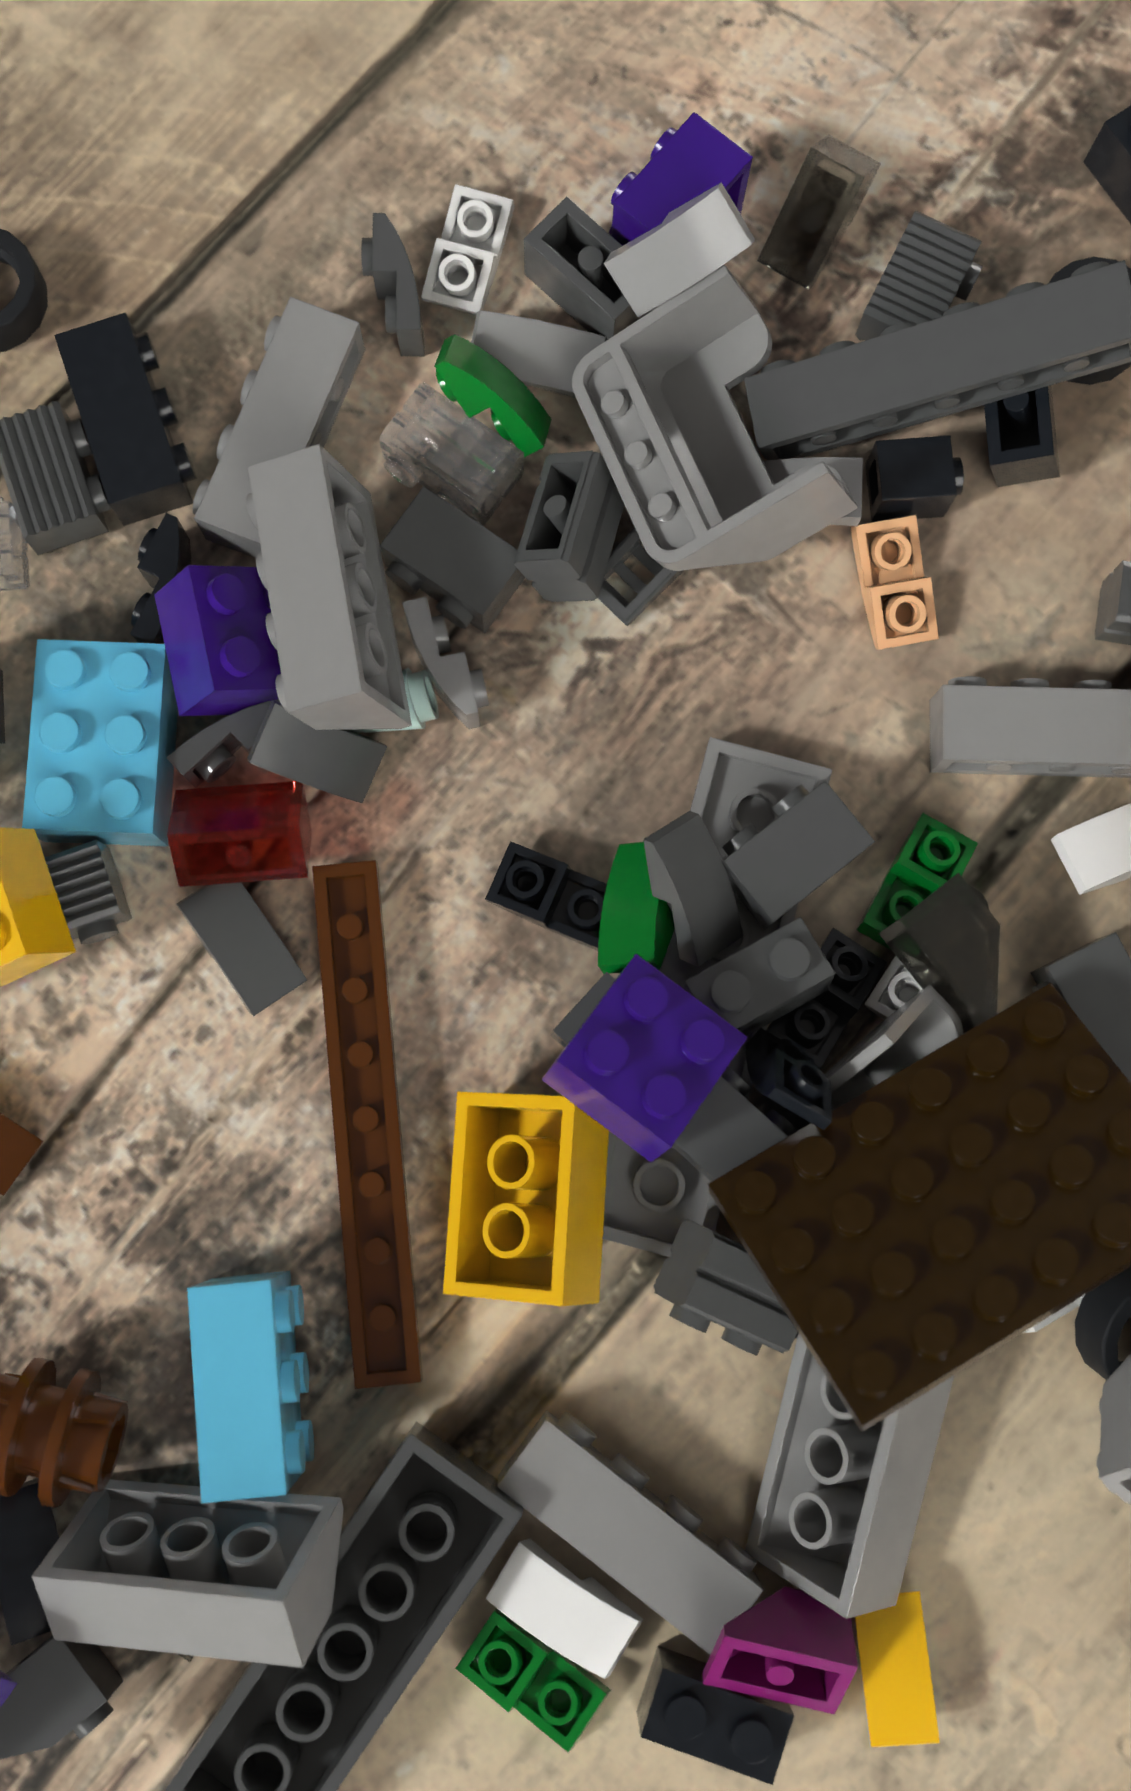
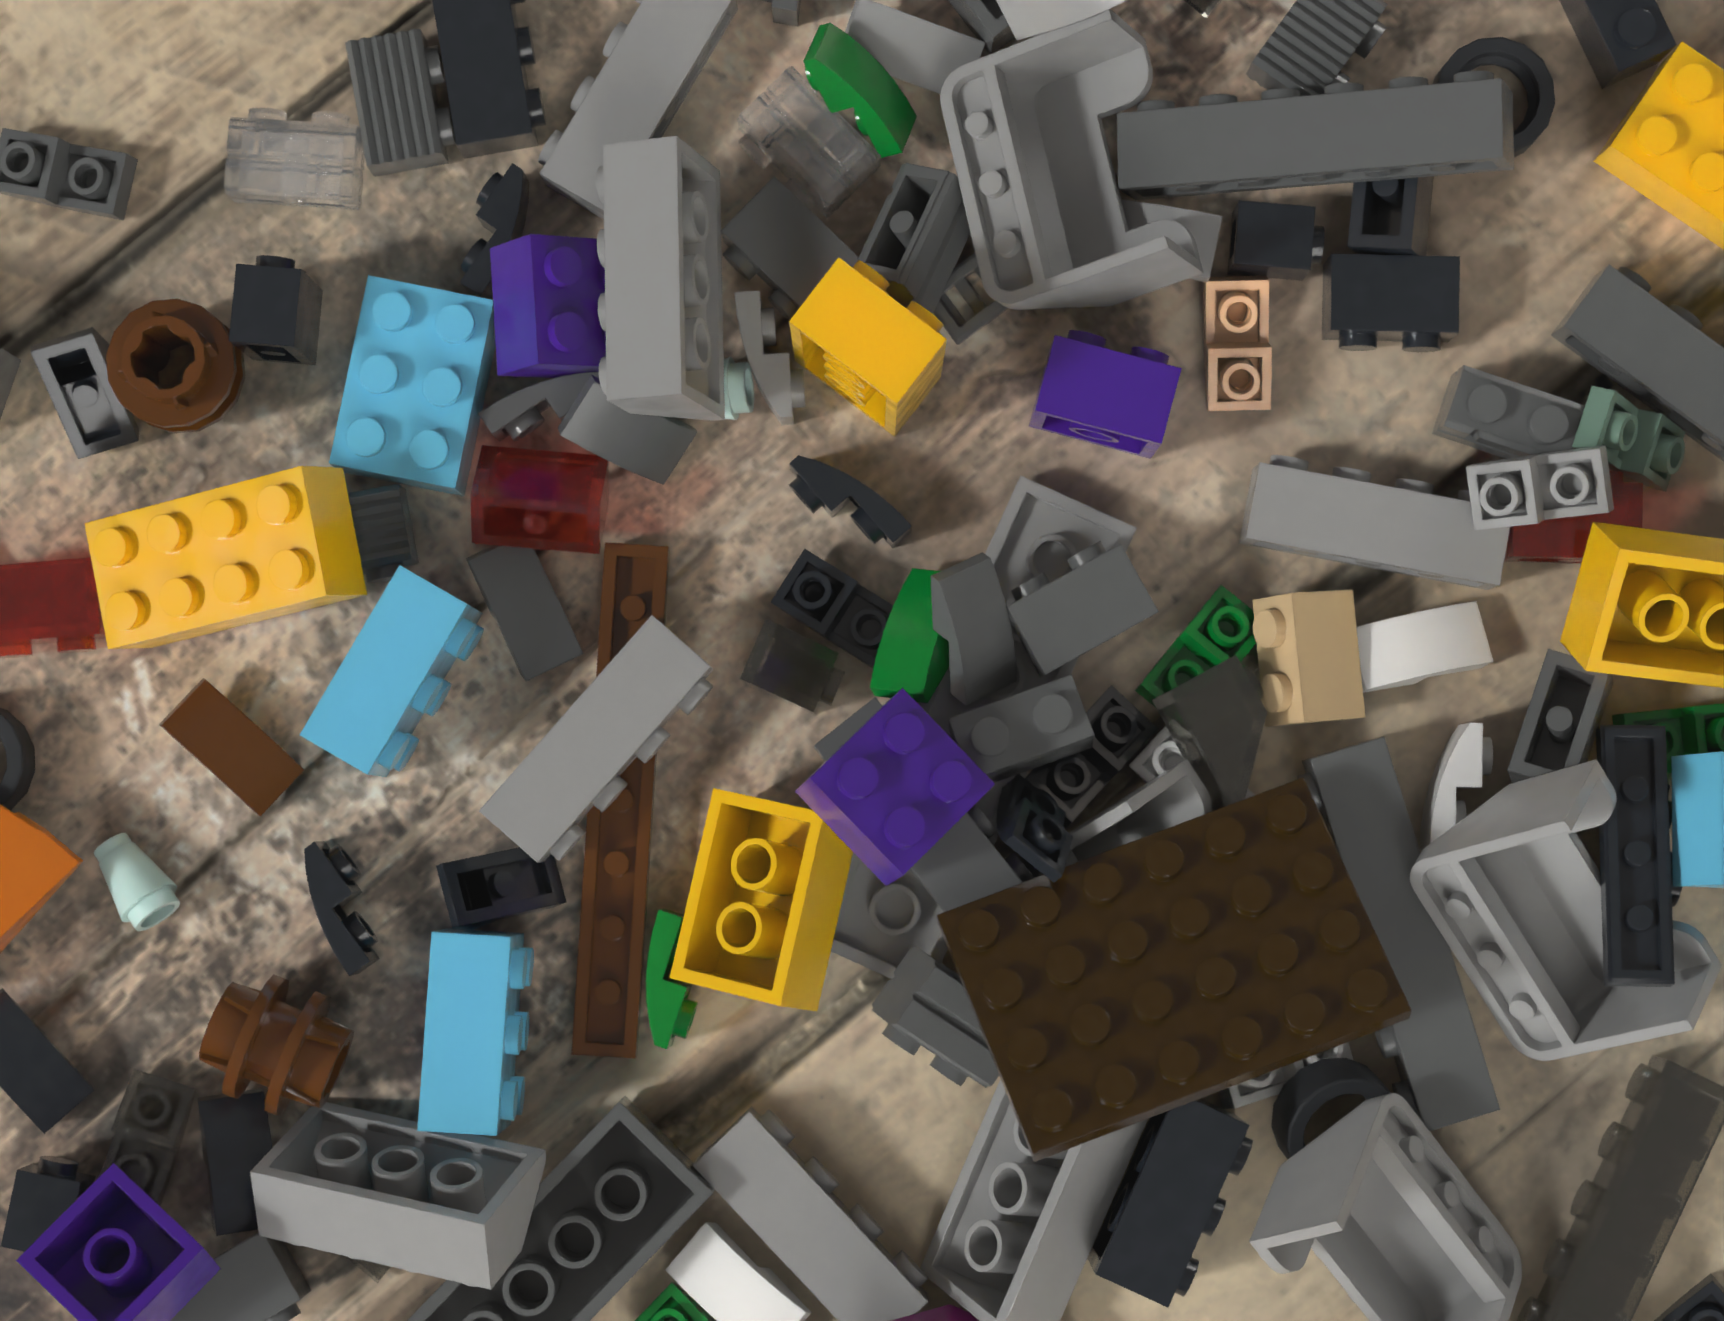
camera: 15 degrees right, 5 degrees up
(84, 1258) = (331, 887): none -> black slope
(115, 1030) = (393, 675): none -> medium azure brick
(255, 1227) = (498, 887): none -> black slope
(332, 1064) = (597, 740): none -> light grey brick
(443, 1315) = (666, 998): none -> green slope
(517, 959) = (792, 668): none -> clear smoke slope
(528, 779) = (832, 489): none -> black slope
(542, 618) = (868, 344): none -> yellow brick
(782, 643) = (1105, 394): none -> dark purple brick
(997, 1446) = (1169, 1199): none -> black brick
(1025, 866) = (1308, 657): none -> tan brick
(1035, 516) = (1390, 300): none -> black brick

